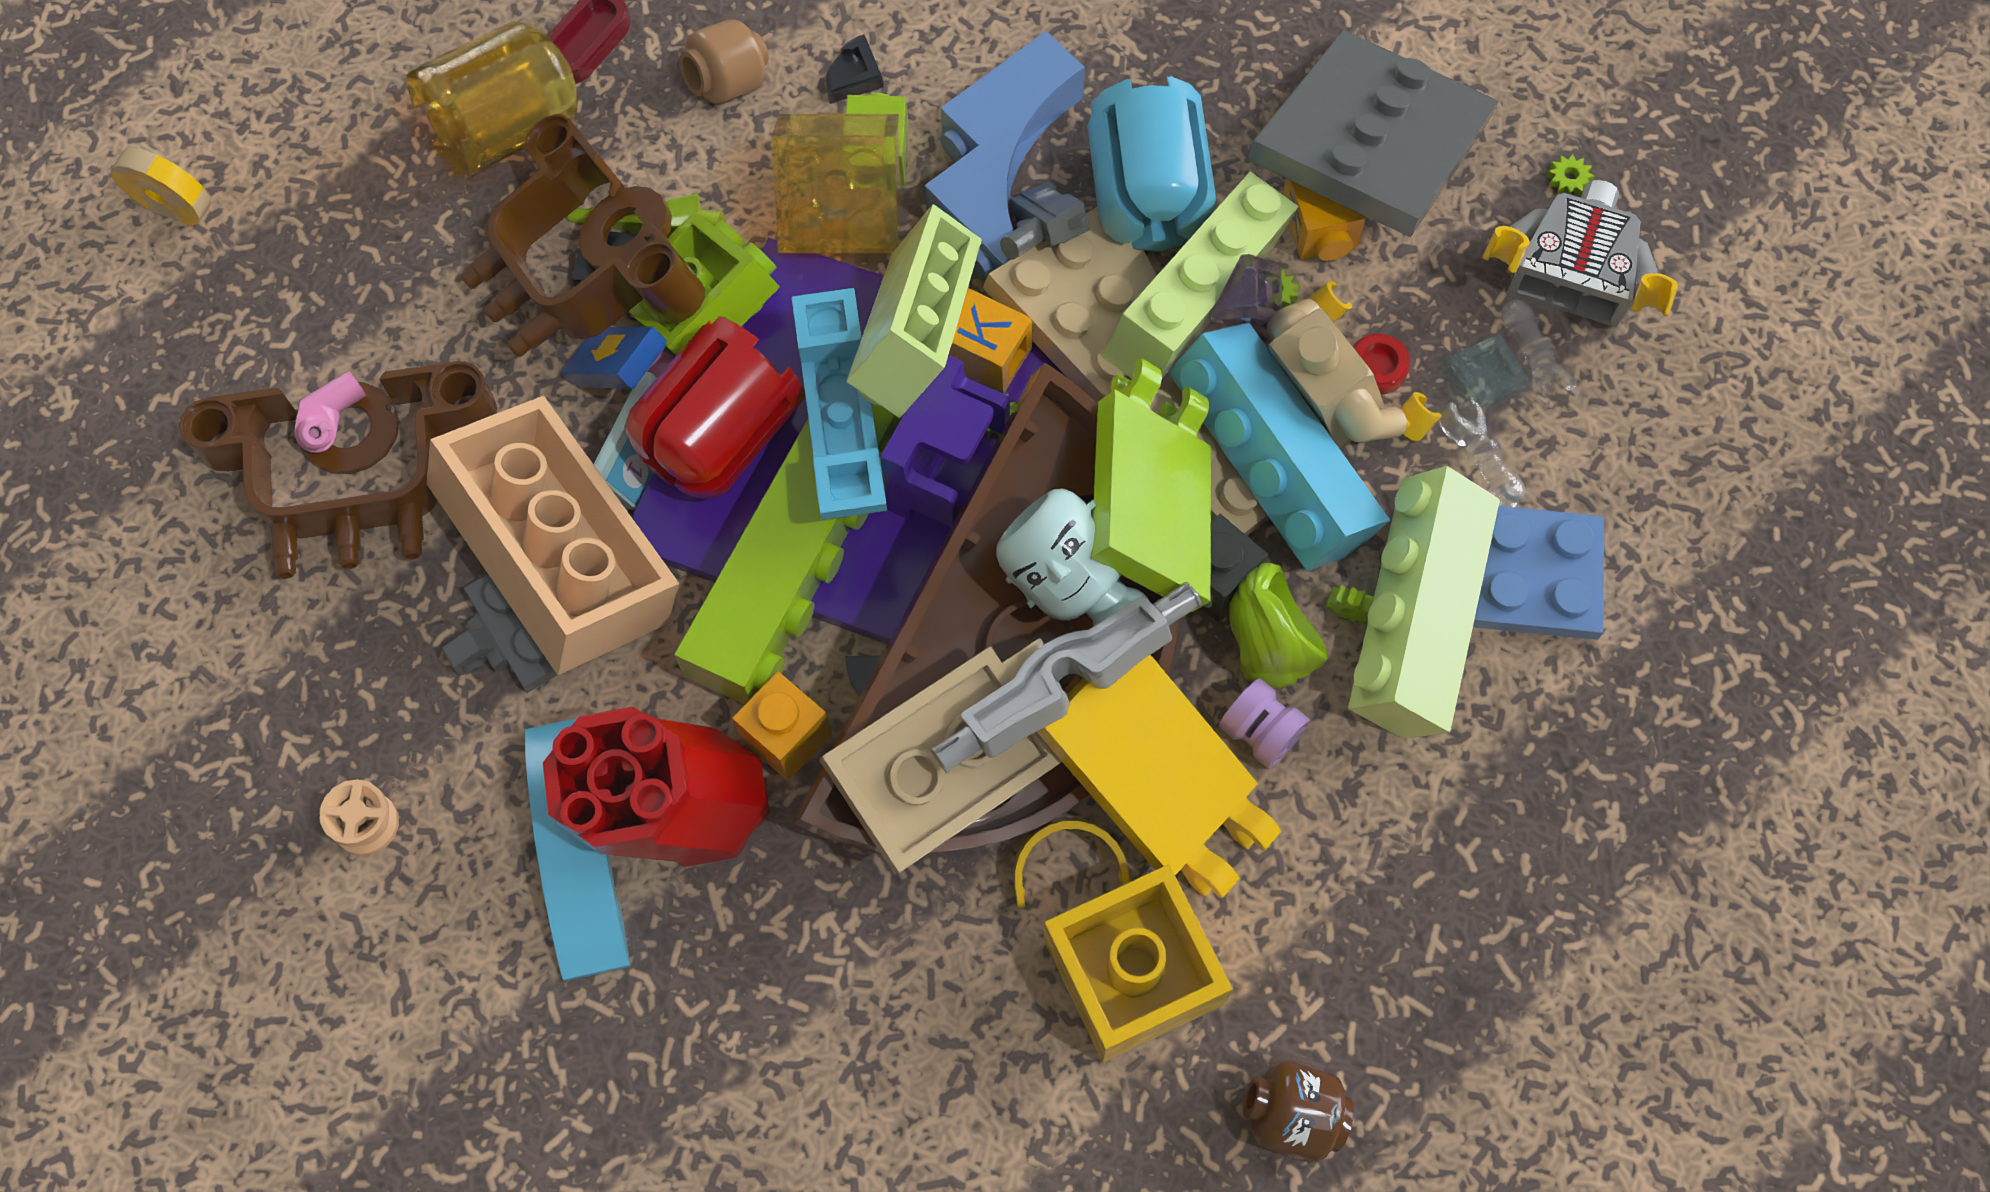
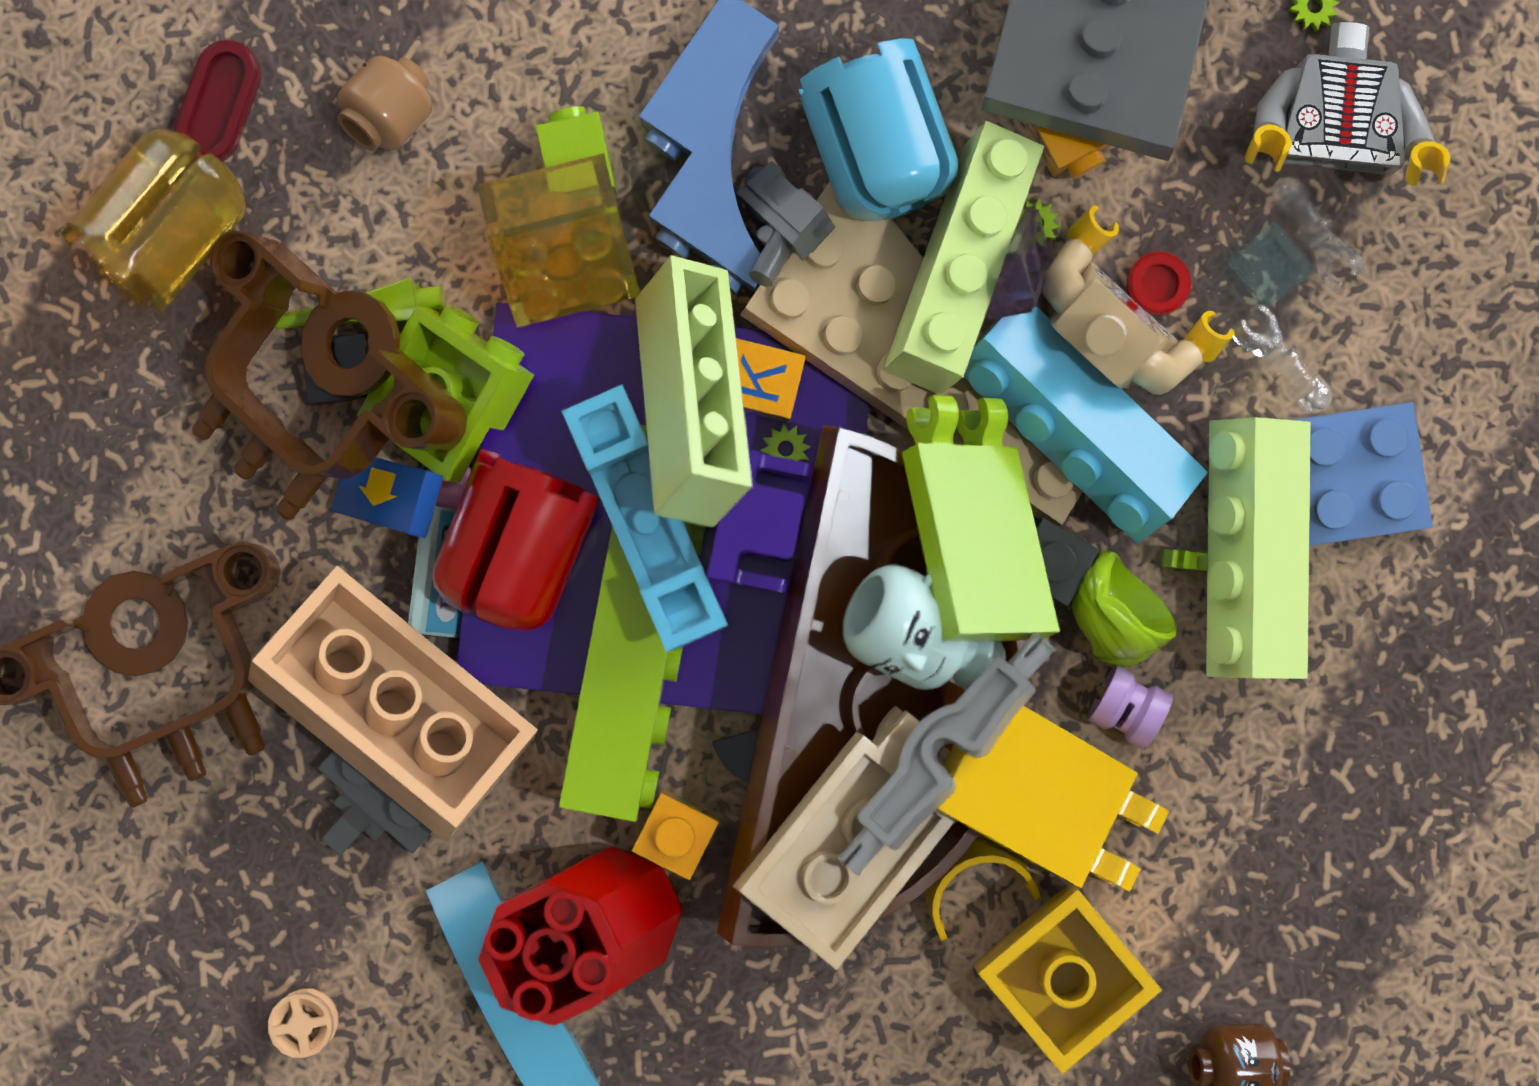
camera: 20 degrees left, 20 degrees up
(321, 411) = (106, 622): bright pink arm -> none
(853, 71) = (523, 70): black tile -> none

